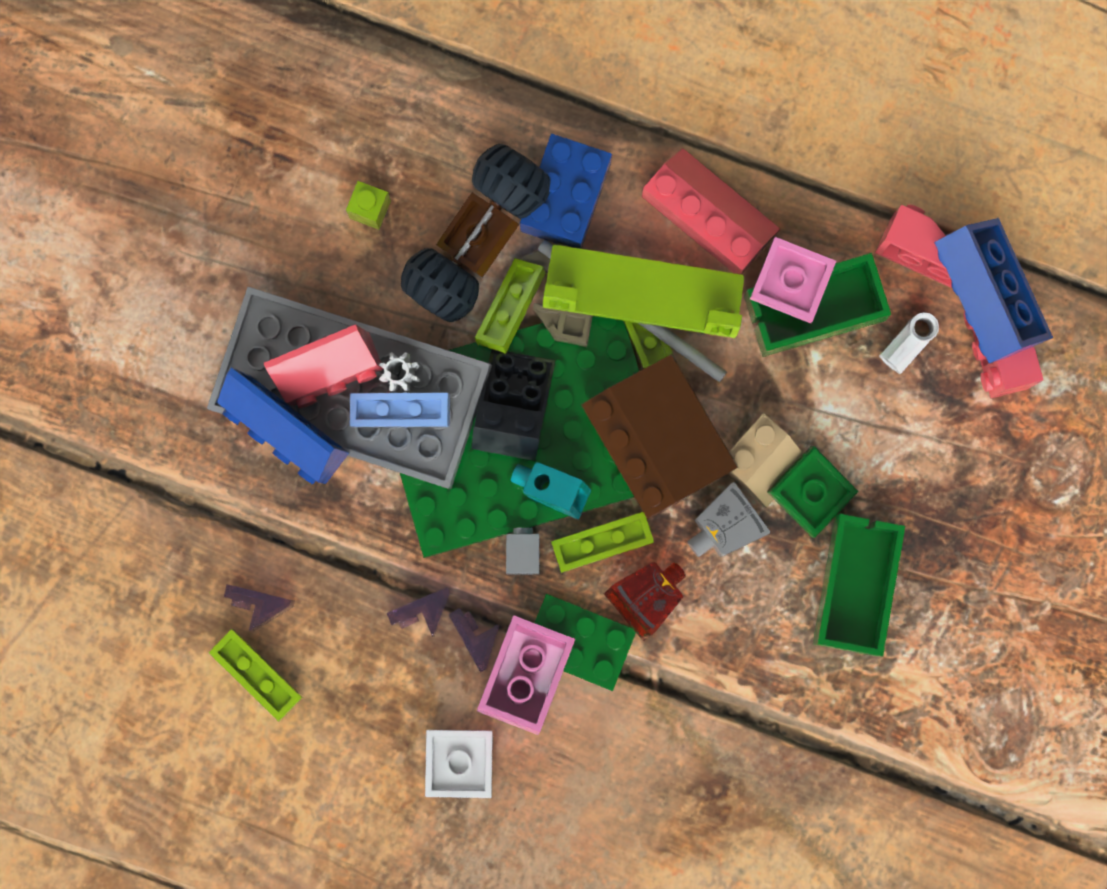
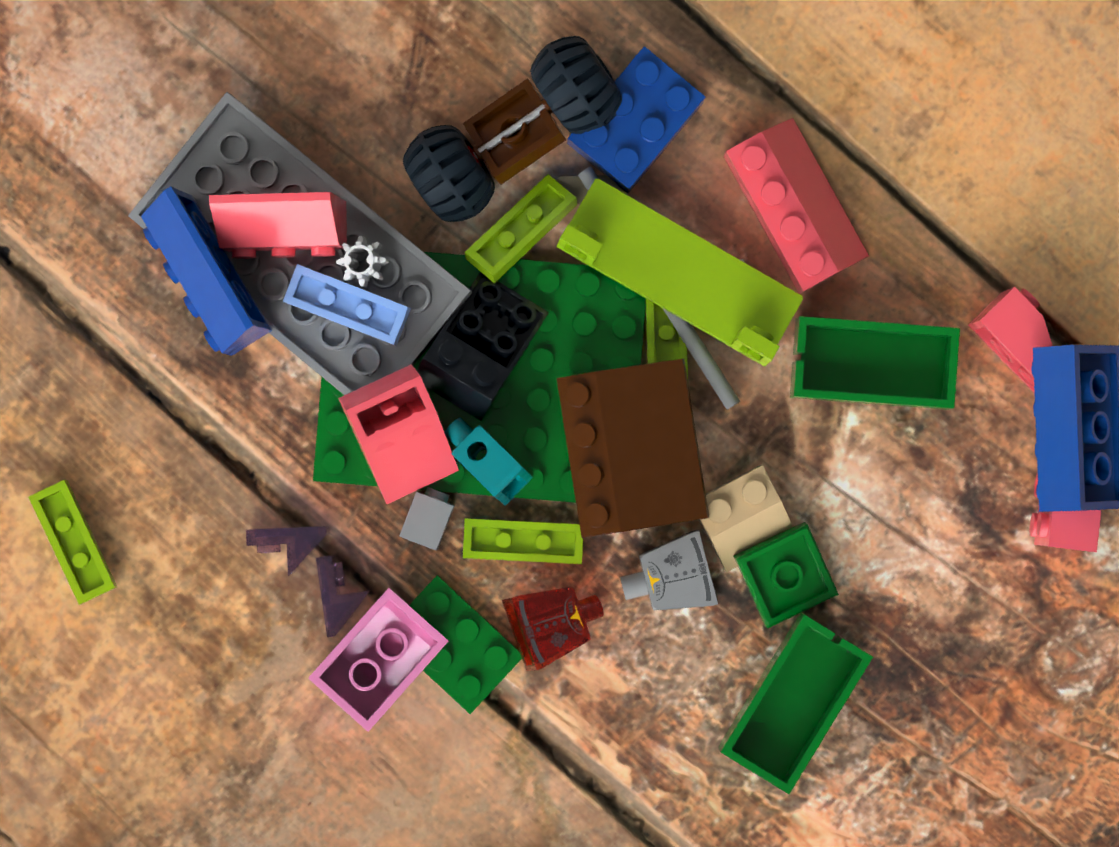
camera: 15 degrees right, 5 degrees up
(266, 606) = (113, 466): clear purple slope -> none
(368, 205) = (401, 48): lime brick -> none
(459, 763) = (265, 729): white plate -> none
(477, 492) = (399, 433): none -> coral slope
(564, 325) = (575, 277): dark tan tile -> none
(793, 280) = (855, 326): bright pink plate -> none
(908, 343) = (962, 448): white piece -> none

